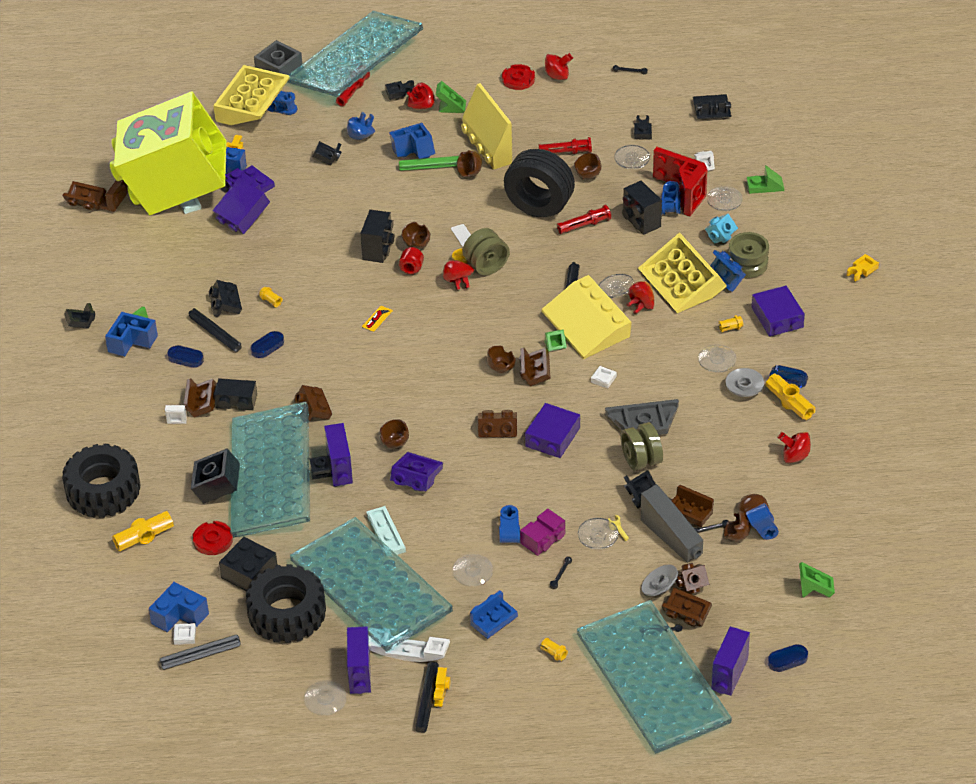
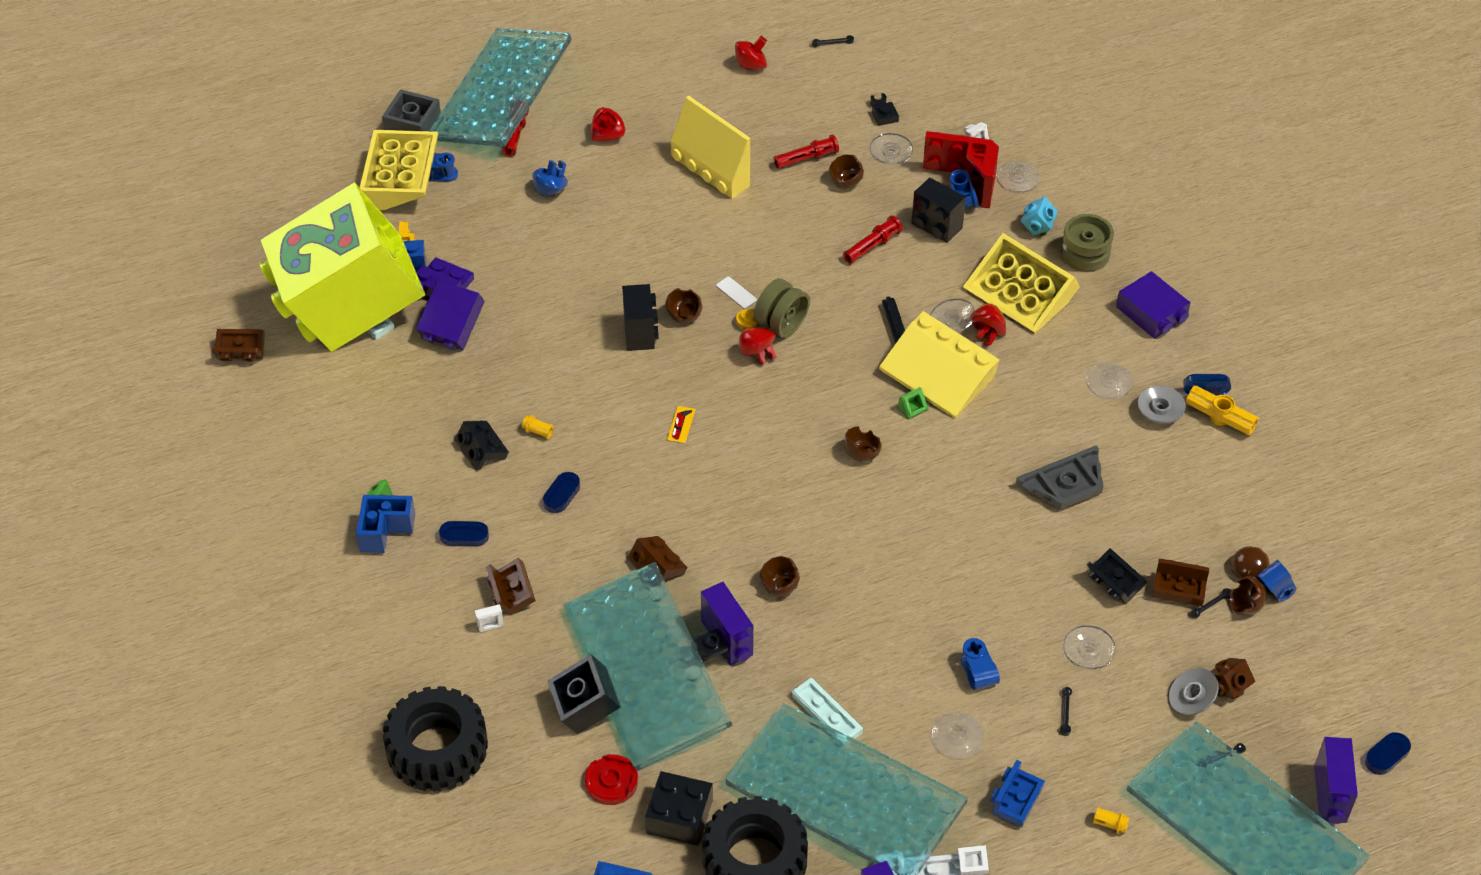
camera: 20 degrees left, 5 degrees up
(80, 318) = (305, 513): black bracket -> none
(114, 196) = (278, 336): reddish brown bracket -> none
(142, 531) = (518, 795): yellow piece -> none
(215, 330) = (486, 488): black axle -> none
(235, 393) = (554, 570): black brick -> none
(326, 153) = (523, 222): black bracket -> none
(397, 89) = (573, 122): black plate -> none
(411, 260) = (692, 339): red head -> none
(412, 140) = (625, 182): blue brick -> none
(415, 471) = (829, 620): dark purple plate -> none
(428, 163) = (657, 206): bright green axle -> none
(450, 100) = (641, 123): bright green slope -> none
(469, 163) = (704, 198): reddish brown hair -> none
(497, 424) = (897, 530): reddish brown bracket -> none
(518, 77) = (707, 76): red tile -> none
(535, 366) = (908, 443): reddish brown bracket -> none
(543, 532) = (1022, 663): magenta brick -> none
(547, 168) = (812, 185): black tyre -> none
(552, 430) = (968, 523): dark purple brick -> none
(603, 377) = (991, 436): white tile -> none
(617, 522) = (1101, 622): light yellow hand -> none
(641, 446) = (1090, 519): olive wheel -> none
(669, 524) = (1172, 614): dark grey slope -> none
(687, 607) = (1242, 718): reddish brown bracket -> none
(712, 106) = (950, 67): black hinge -> none
(728, 271) = (1078, 267): blue bracket -> none
(731, 323) = (1110, 331): yellow pin -> none
(768, 183) = (1057, 148): bright green slope -> none
(796, 447) = (1262, 473): red piece -> none
(815, 580) = (1369, 643): bright green slope -> none
(864, 265) = (1218, 227): yellow plate -> none

